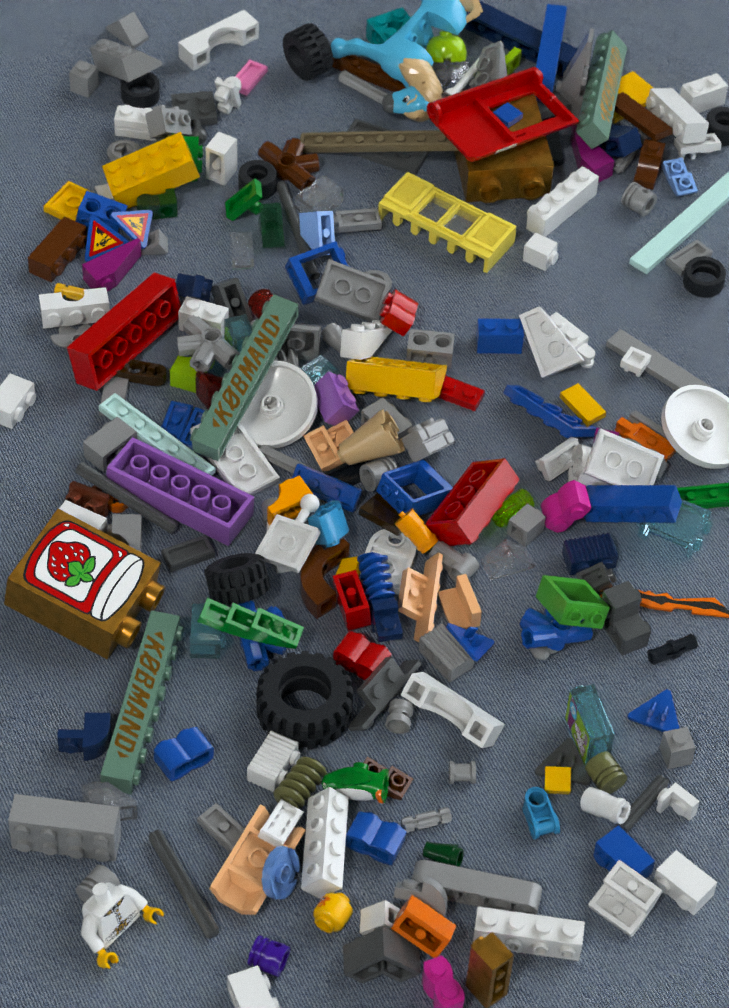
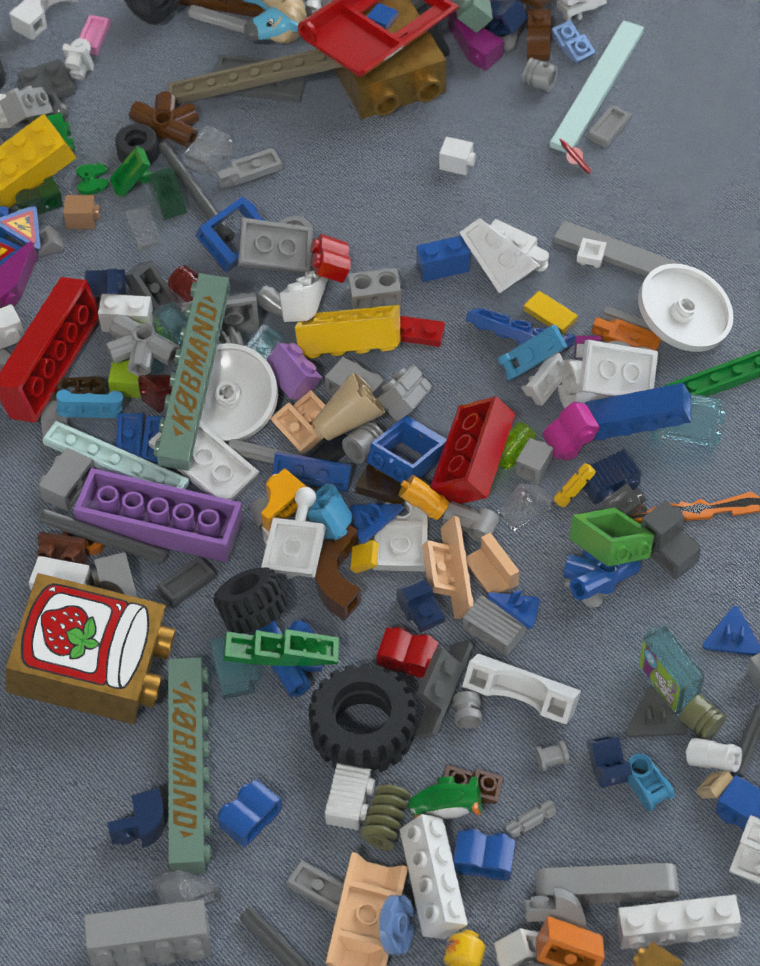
camera: 10 degrees left, 5 degrees up
(147, 386) = (89, 404): none -> dark azure plate
(190, 224) = (81, 211): none -> medium nougat brick
(206, 203) = (90, 184): none -> green piece
(221, 158) = (93, 131): white brick -> none
(280, 824) = (379, 868): white plate -> none
(317, 228) = (217, 186): light blue slope -> none
(352, 600) = (378, 592): red brick -> none
(367, 538) = (372, 518): none -> blue piece
(374, 577) = (395, 560): blue piece -> none
(444, 853) = (561, 854): dark green cone -> none
(448, 218) = (350, 142): light yellow window -> none
(510, 788) = (608, 761): none -> dark blue brick
(553, 432) = (533, 352): none -> dark azure plate
(554, 552) = (574, 485): none -> yellow axle
(557, 780) = (653, 738): yellow tile -> none
(562, 202) = (462, 96): white brick -> none
(598, 830) = (714, 784): none -> tan tile
(648, 276) = (575, 156): none -> piece
(672, 649) = (726, 560): black pin -> none
(702, 288) = (635, 156): black tyre -> none

